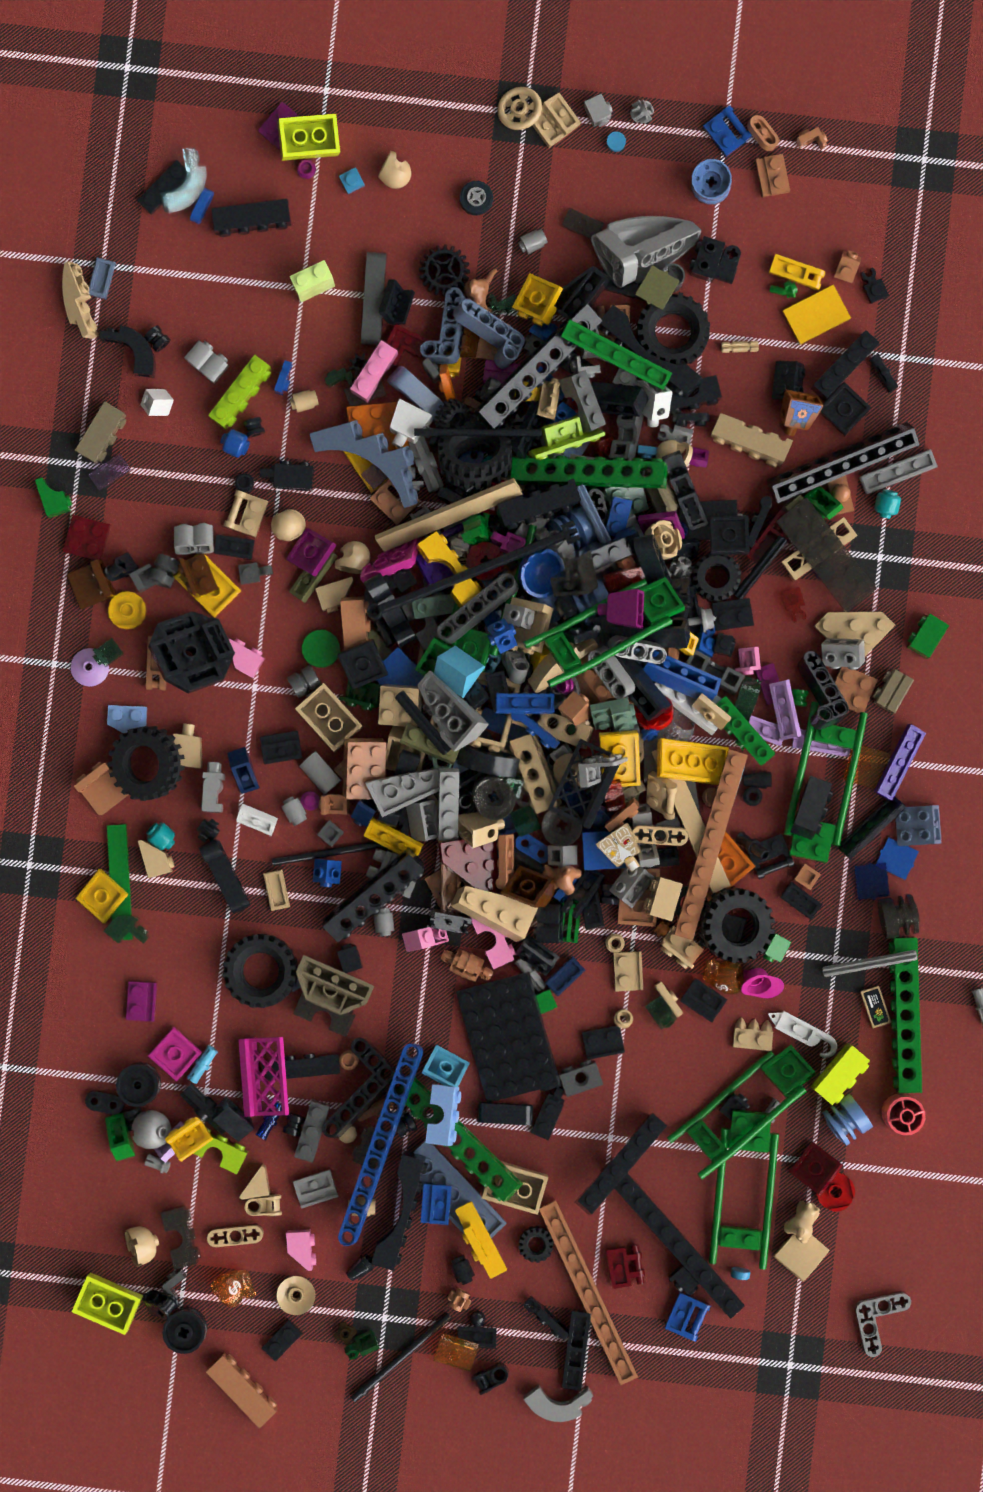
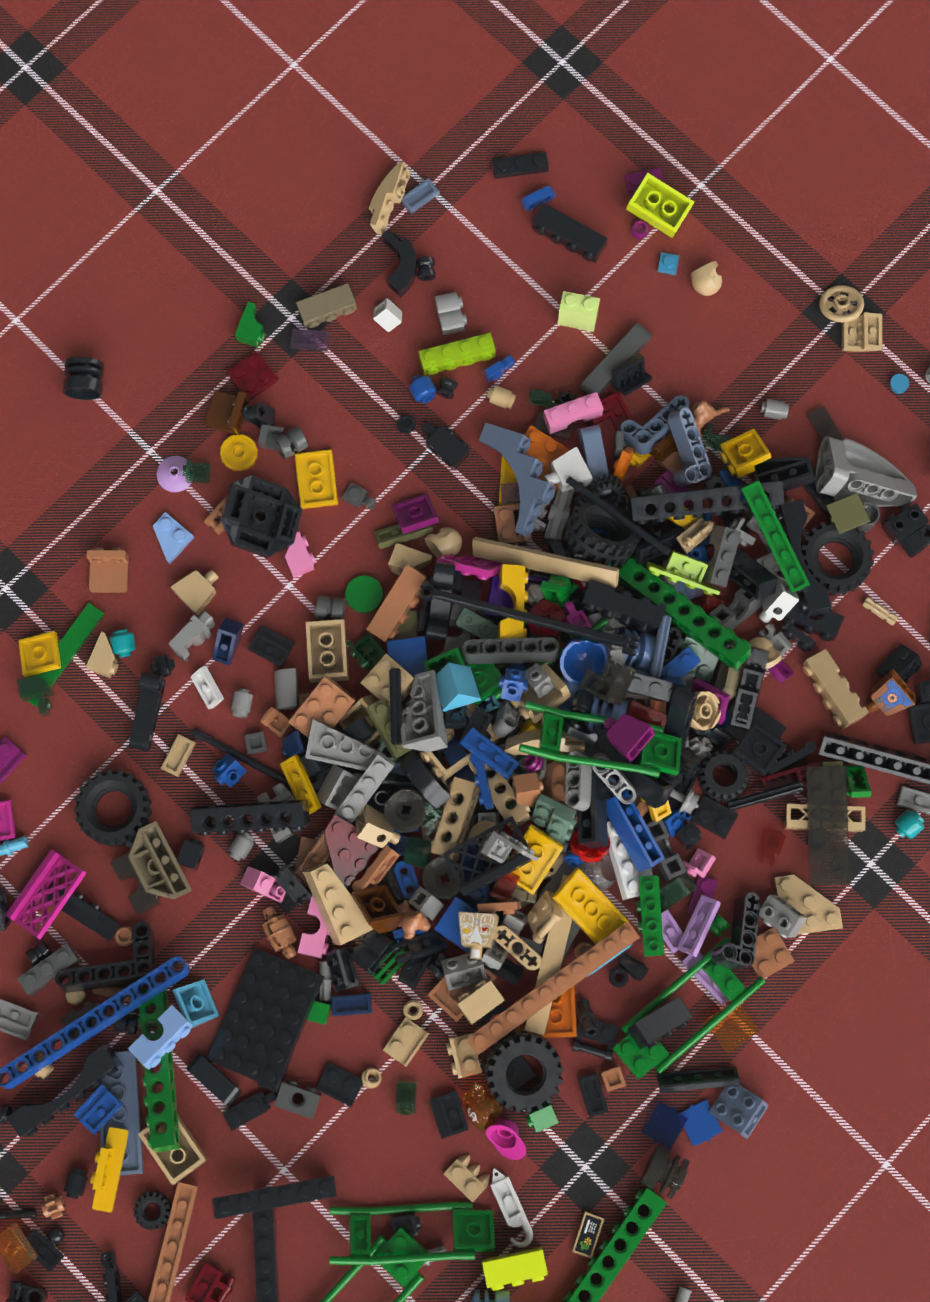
camera: 40 degrees right, 10 degrees down
(167, 756) = (174, 586): black tyre -> none
(191, 187) = (540, 179): clear light blue arch -> none
(193, 539) = (332, 436): light grey brick -> none
(198, 575) = (313, 464): reddish brown bracket -> none
(234, 547) = (359, 466): black plate -> none
(252, 514) = (392, 453): tan plate -> none
(268, 1123) = (19, 936): clear blue pin -> none
(288, 525) = (413, 480): tan helmet -> none
(310, 800) = (260, 705): magenta plate -> none
(362, 664) = (386, 627): black plate -> none
(454, 257) = (701, 375): black gear -> none
(480, 193) = (761, 342): black wheel -> none
(598, 110) = (902, 349): light grey brick -> none
(647, 452) = (740, 632): dark azure plate -> none
(662, 928) = (460, 1027): dark orange plate -> none
(669, 997) = (422, 1090): tan plate -> none
(711, 711) = (636, 879): tan plate -> none
(840, 490) = (878, 783): nougat tile -> none
(869, 963) = (611, 1193): light grey axle -> none
(892, 691) = (800, 980): dark tan brick -> none
(900, 762) = (762, 1043): plate -> none
(927, 636) = (863, 957): green brick -> none

